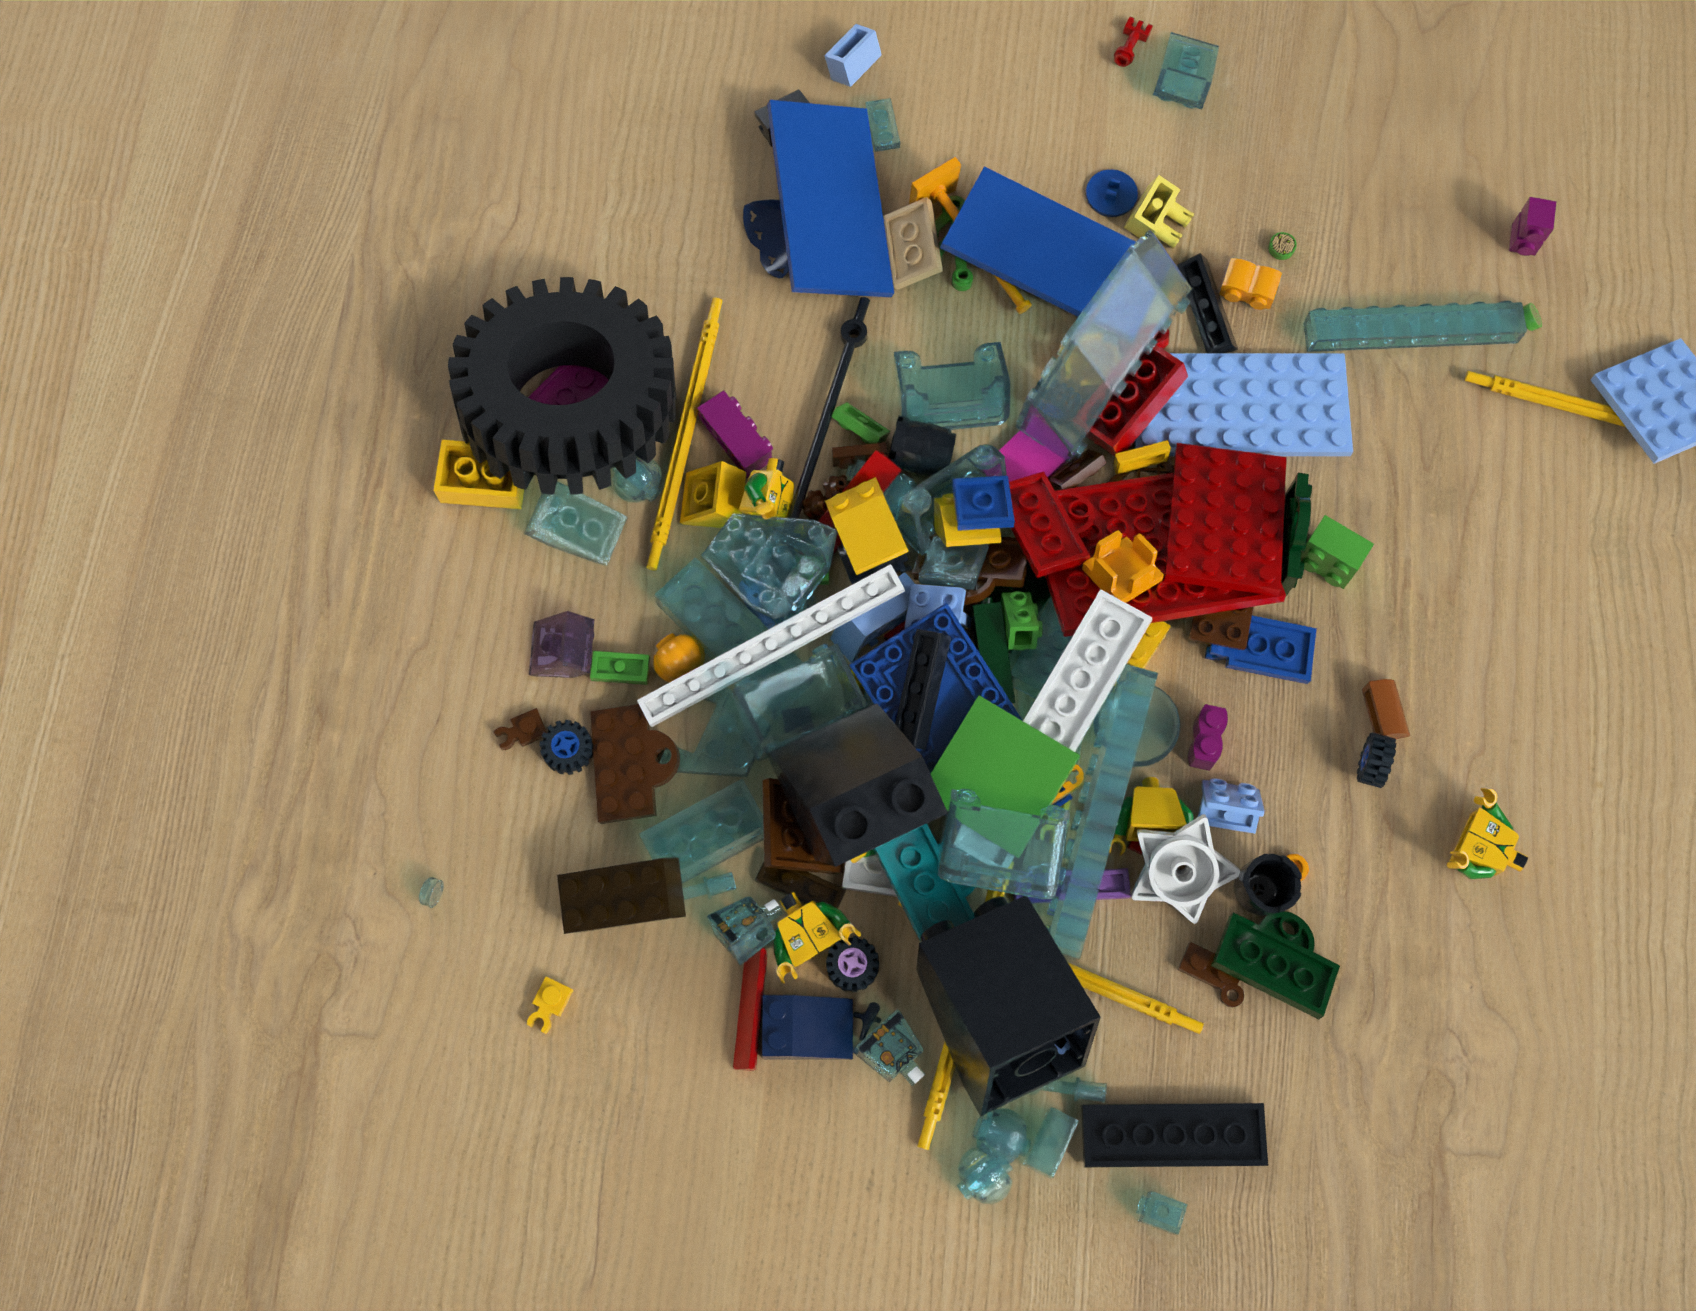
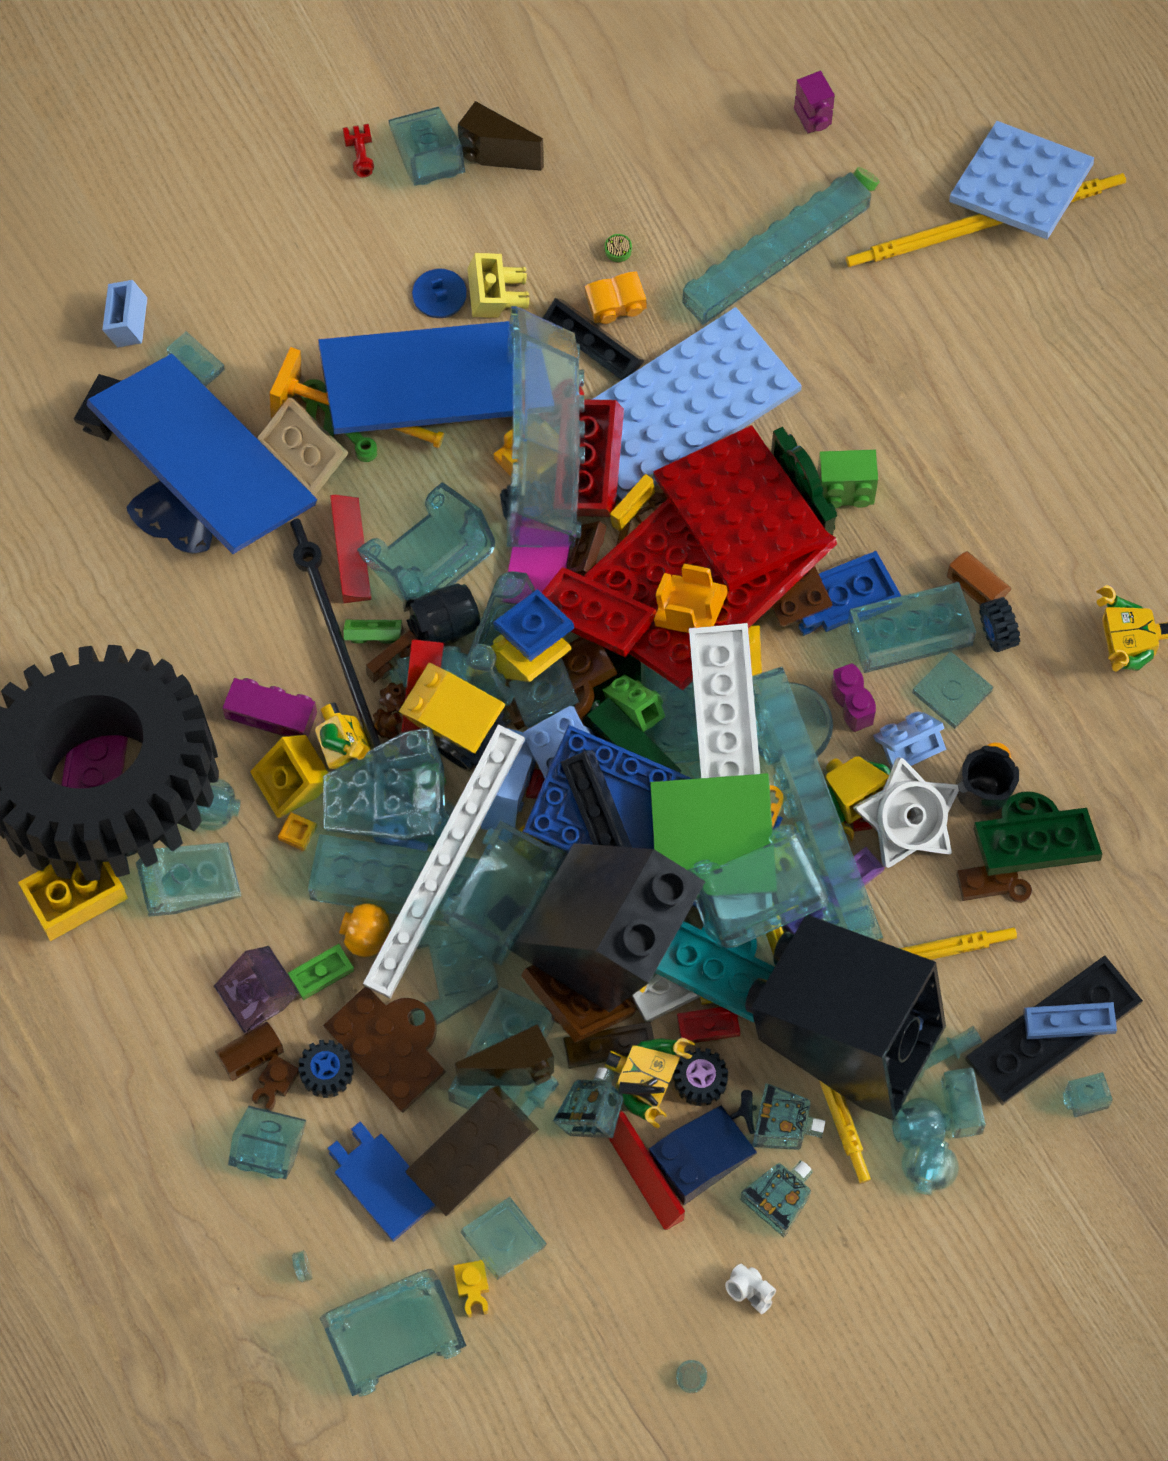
camera: 35 degrees left, 5 degrees down
(456, 992) = (392, 1330): none -> clear light blue windscreen
(478, 773) = (266, 1142): none -> clear light blue slope
(520, 692) = (249, 1051): none -> reddish brown brick
(537, 861) = (379, 1182): none -> blue tile
(599, 982) = (503, 1238): none -> clear light blue tile
(663, 1206) = (691, 1376): none -> clear light blue tile
(684, 434) = (224, 739): yellow axle -> none
(686, 544) = (297, 831): none -> light orange tile
(704, 848) = (511, 1062): none -> dark brown slope
(762, 1163) = (749, 1284): none -> white plate
(792, 943) = (642, 1089): none -> black bar
(843, 1109) = (779, 1195): none -> clear light blue torso
(888, 925) = (708, 1024): none -> red plate
(897, 337) = (349, 538): none -> red slope
(1192, 1139) = (1070, 1020): none -> medium blue tile
(1244, 98) = (498, 141): none -> dark brown slope
(1297, 787) = (952, 690): none -> clear light blue tile
(1299, 712) = (911, 627): none -> clear light blue brick

